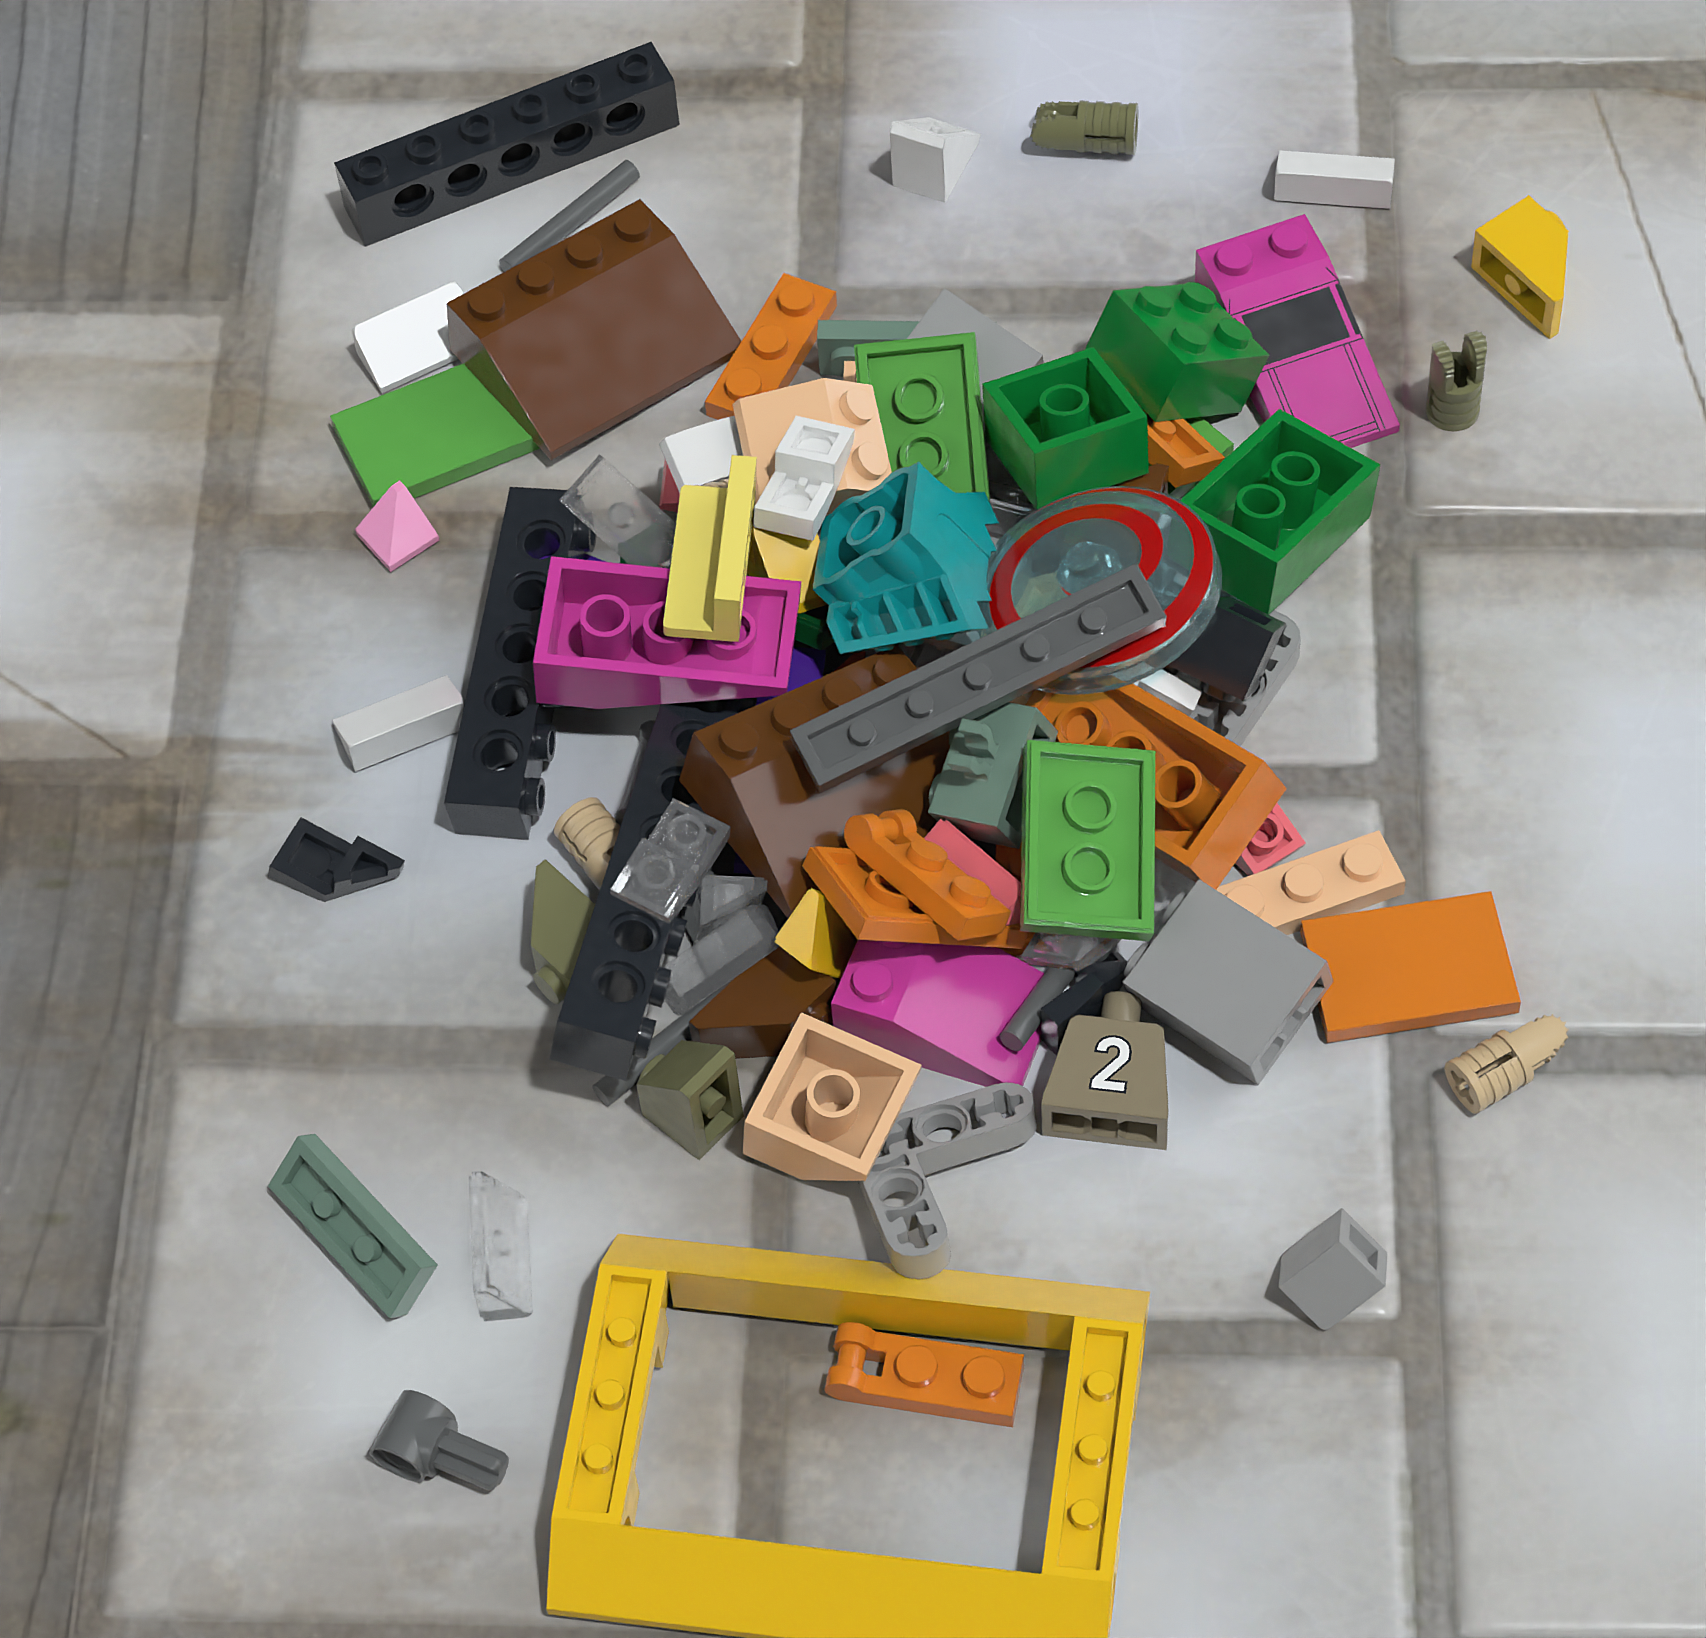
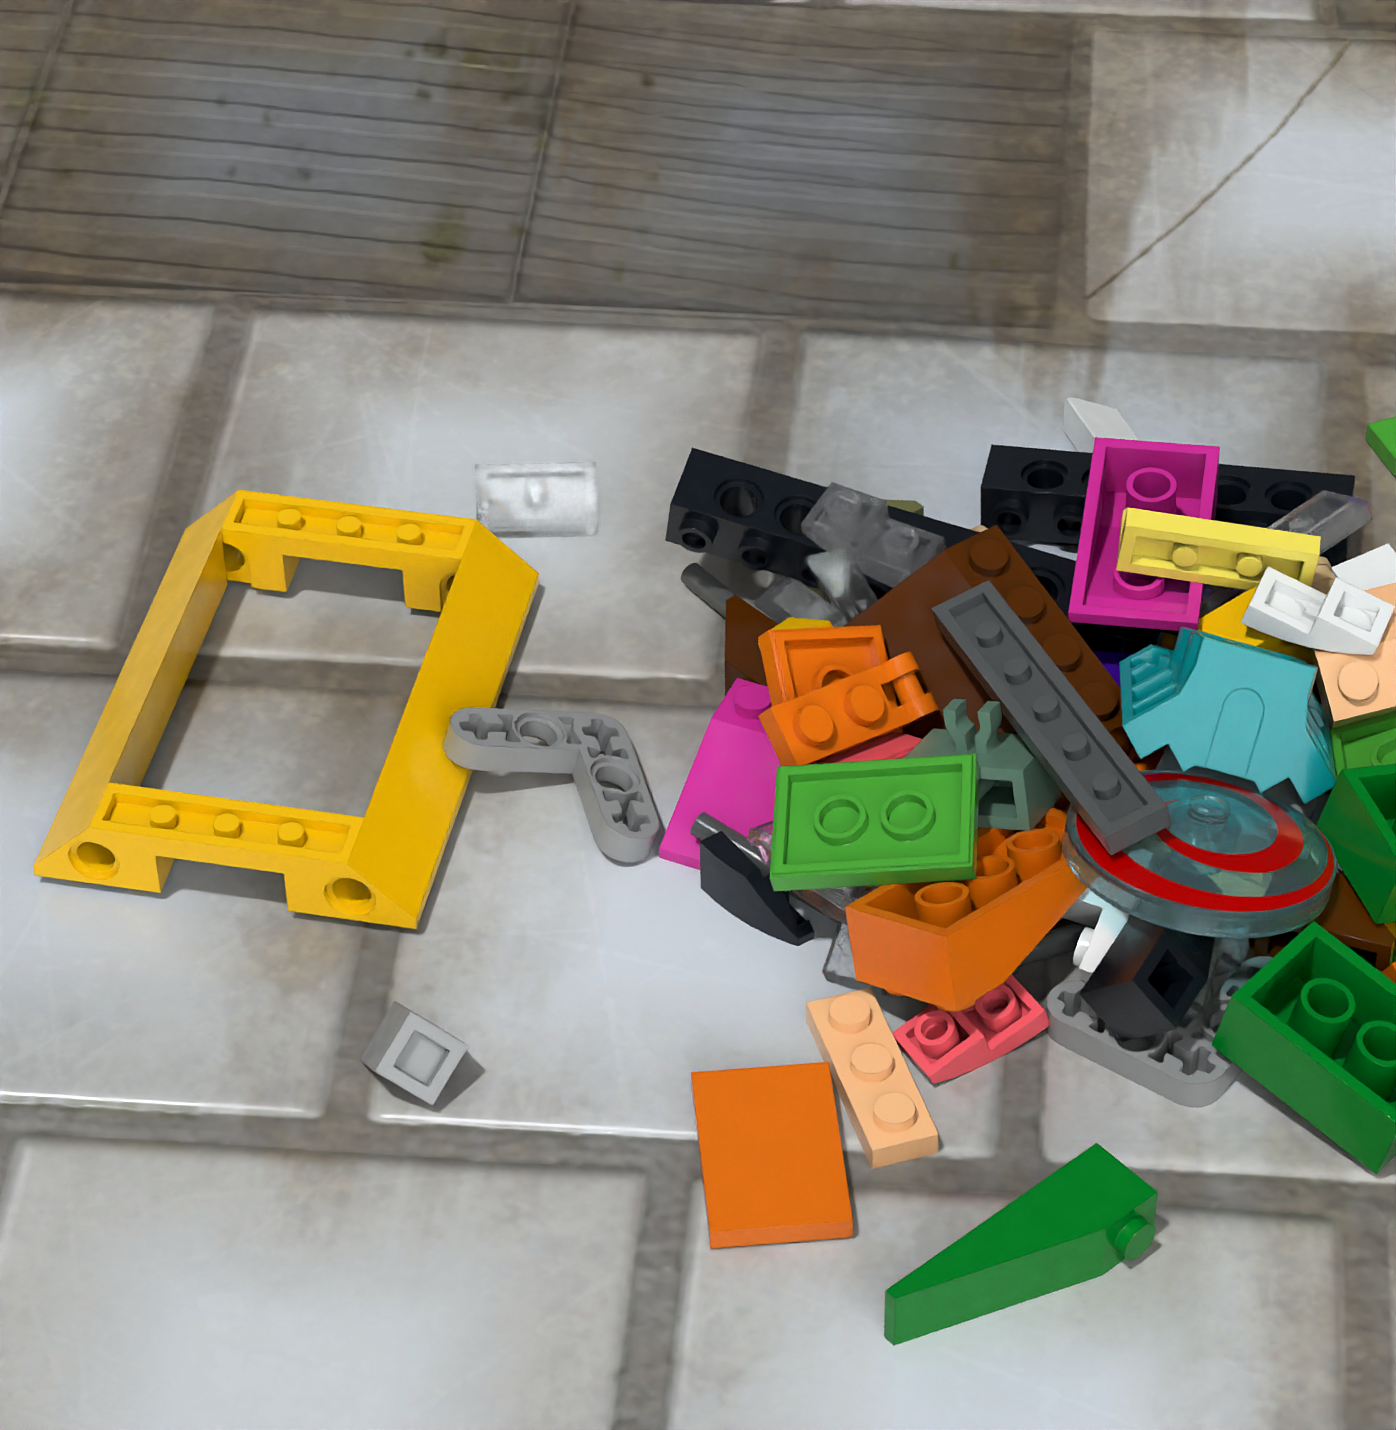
camera: 90 degrees right, 15 degrees down
(330, 866) = (958, 405): black slope -> none
(352, 1225) = (572, 418): sand green plate -> none
(396, 528) = (1341, 446): bright pink slope -> none
(425, 1439) = (354, 459): dark grey axle -> none
(692, 1094) = (662, 607): olive slope -> none
(827, 1104) = (641, 678): light nougat slope -> none
(926, 1376) = (357, 759): orange plate -> none
(1109, 1079) = (654, 902): dark tan torso -> none
(1227, 980) = (746, 983): light grey brick -> none
(1488, 734) = (1042, 1242): none -> green slope
(1515, 1052) = (638, 1218): tan hinge -> none

